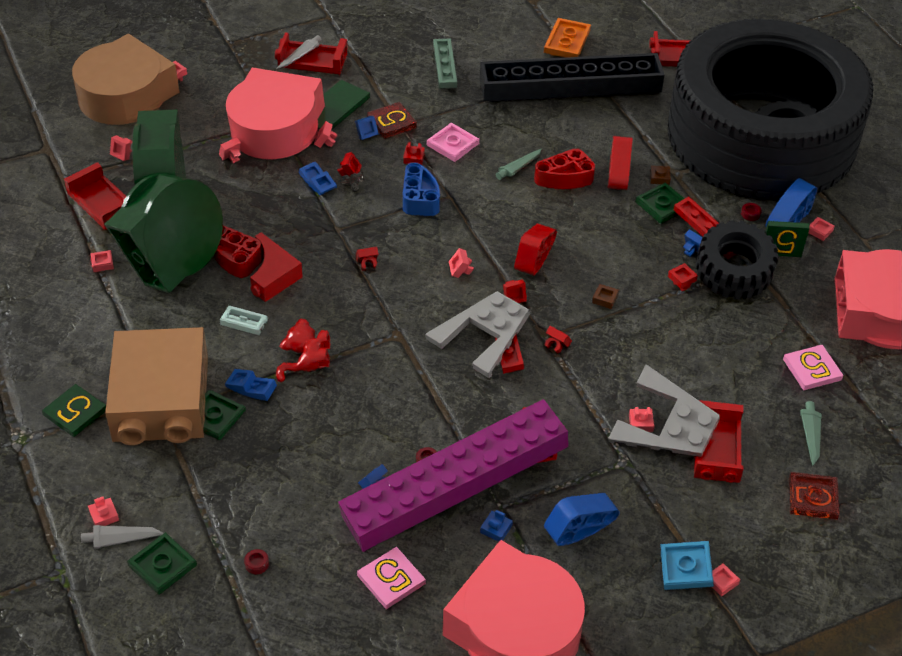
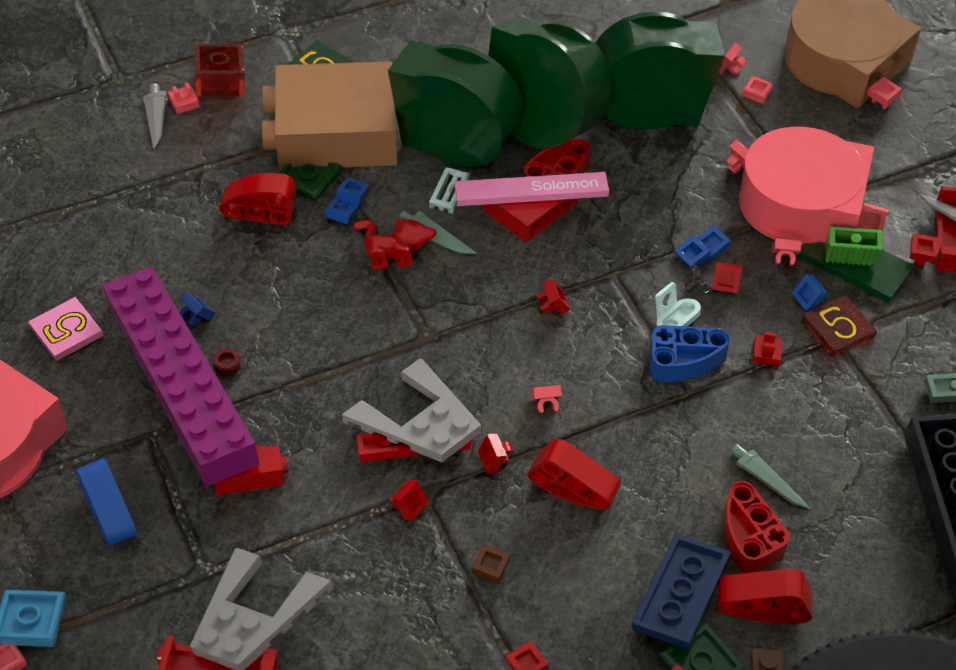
camera: 90 degrees right, 5 degrees up
(78, 476) = (219, 70): none -> clear red brick
(162, 563) = (116, 147): dark green tile -> none
(181, 281) = (454, 102): none -> dark green brick
(253, 436) = (260, 198): none -> red beam
(256, 561) = (106, 218): dark red tile -> none
(265, 257) = (531, 188): none -> bright pink tile
(281, 333) = (442, 237): none -> sand green bar
(330, 70) = (923, 249): none -> red tile
(334, 96) = (853, 246): none -> bright green brick
(385, 193) = (675, 313): none -> light aqua bracket
(453, 142) = (803, 396): bright pink tile -> none
(496, 526) = (119, 425): blue tile -> none
(617, 203) = (681, 591): none -> dark blue plate
(642, 418) = (267, 591): coral tile -> none

